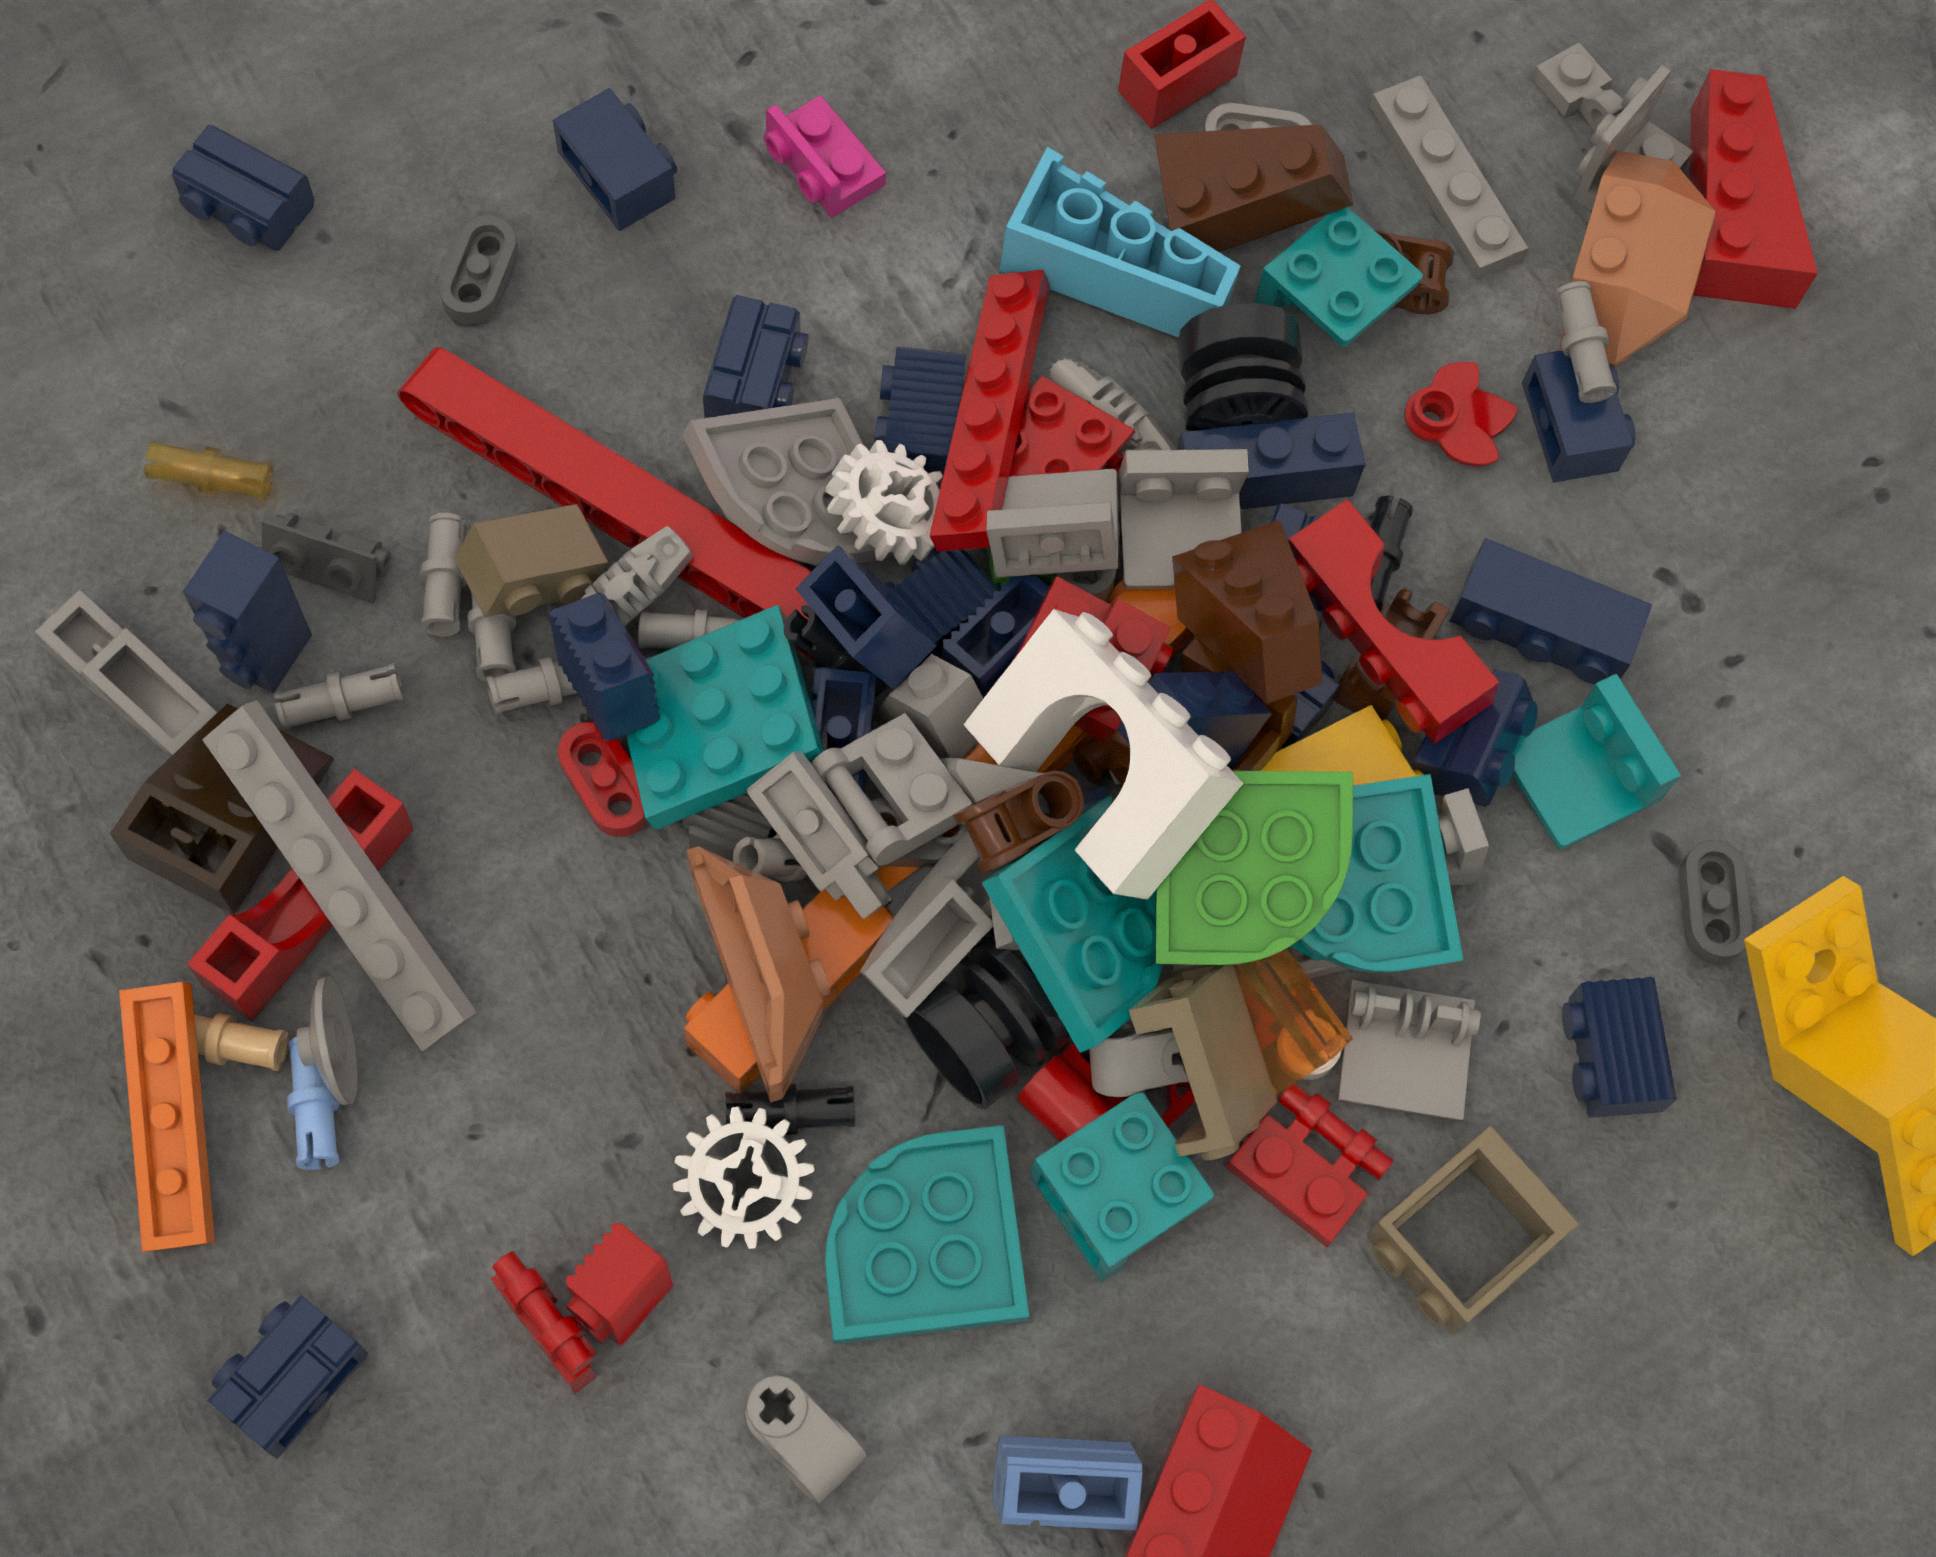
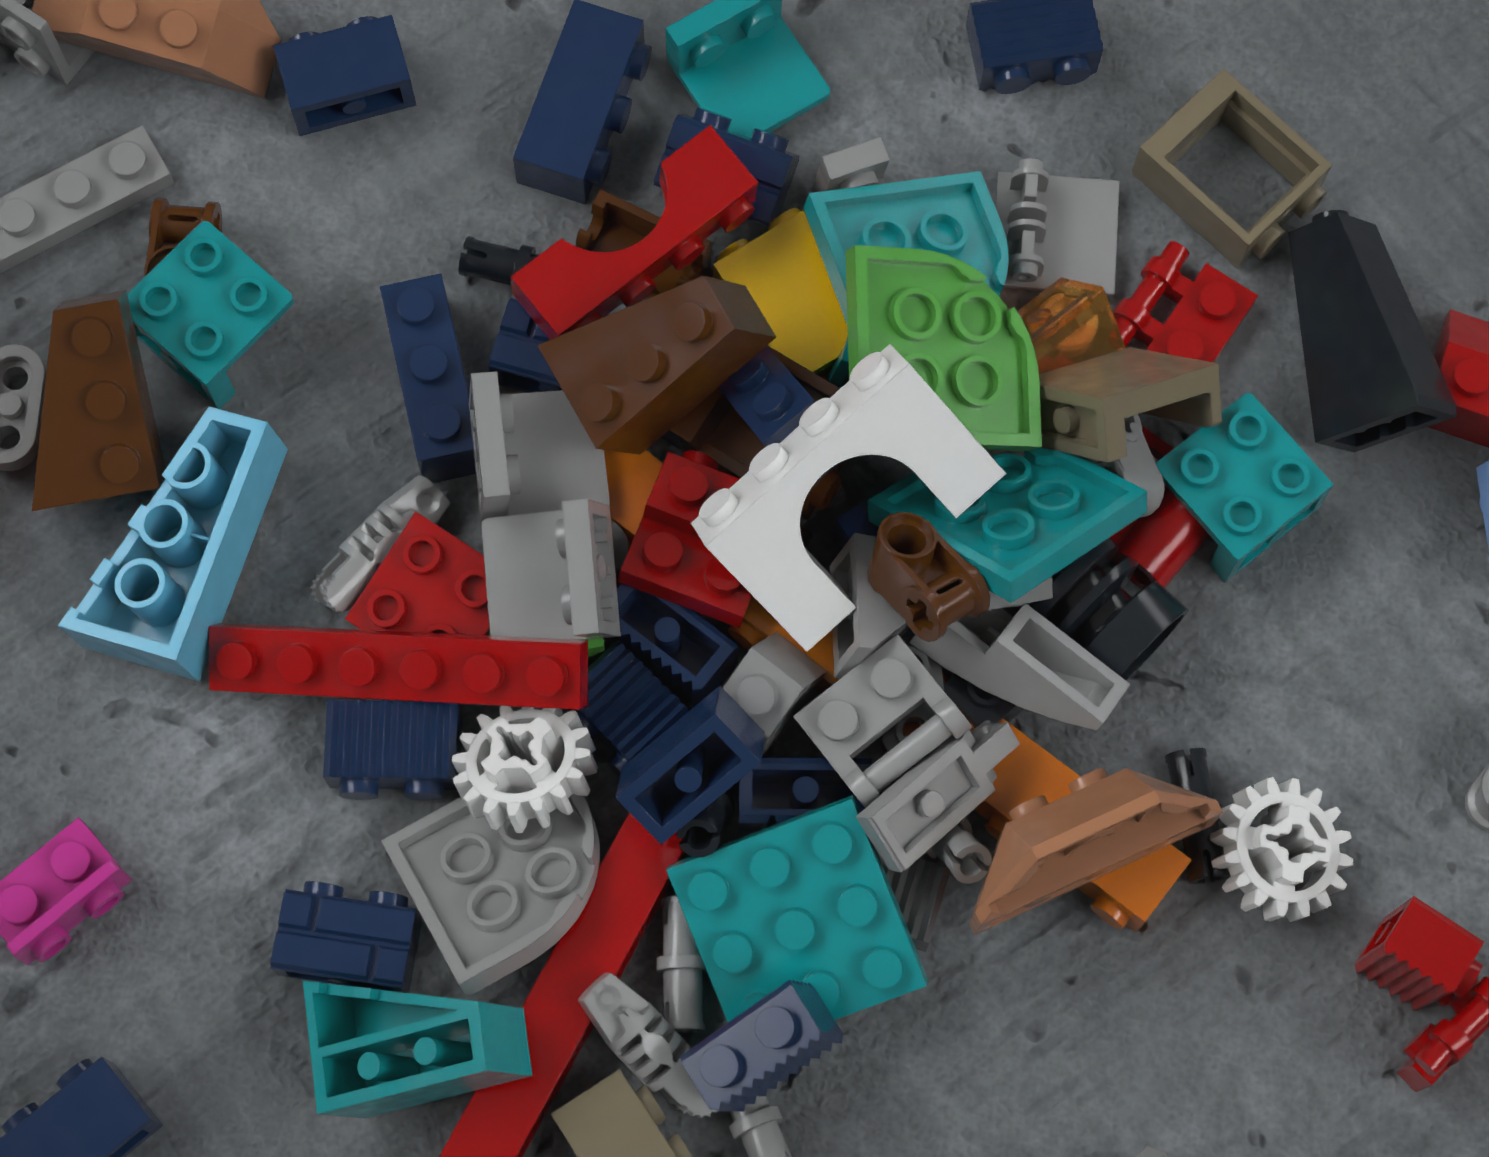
camera: 90 degrees left, 5 degrees up
(602, 783) = (865, 1051): red plate -> none
(651, 388) = (406, 1049): none -> teal wedge
(927, 1241) = (1312, 669): teal plate -> none
(1241, 367) = (339, 403): black wheel -> none
(1279, 1328) = (1361, 338): none -> black slope
(1466, 415) = (346, 188): red plate -> none
(1585, 342) = (282, 55): light grey pin -> none

